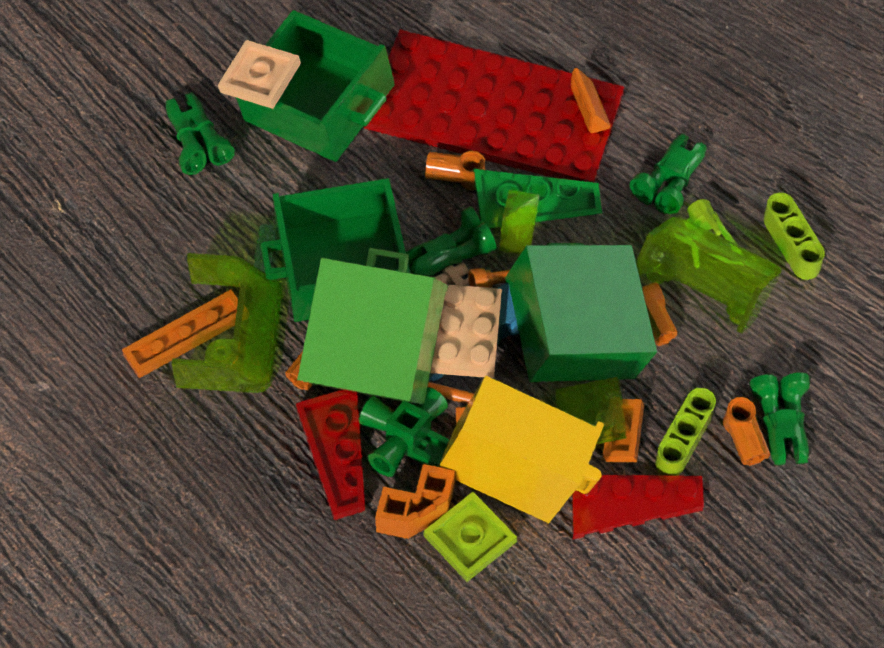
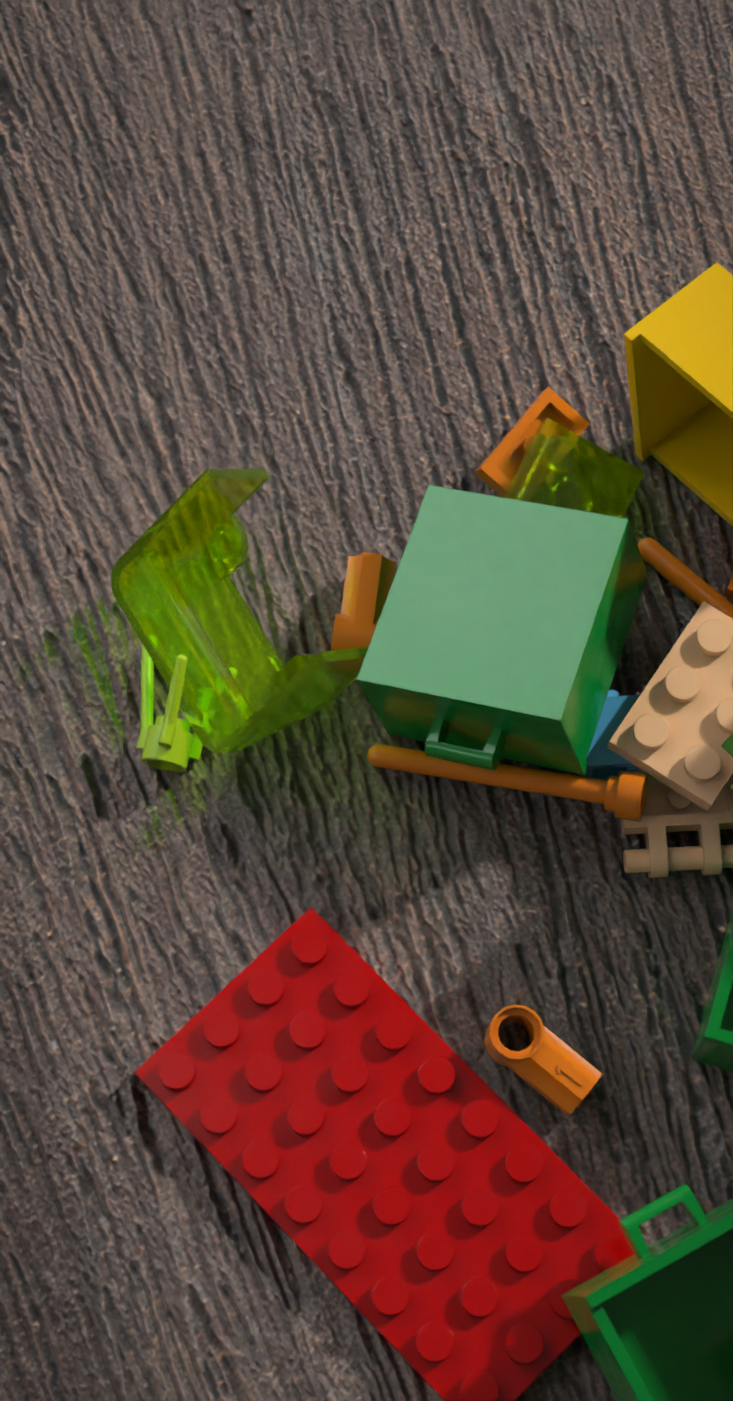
camera: 150 degrees left, 10 degrees up
(450, 249) = (652, 902): green piece -> none
(518, 221) = (490, 886): clear neon green slope -> none
(556, 196) = (449, 921): green wing -> none
(589, 102) = (227, 1047): orange slope -> none
(633, 500) = (555, 342): red wing -> none
(674, 168) = (154, 859): green piece -> none
(687, 419) = (449, 374): lime beam -> none
(745, 433) = (348, 354): orange piece -> none
(785, 423) = (278, 336): green piece -> none
(793, 248) = (39, 601): lime beam -> none

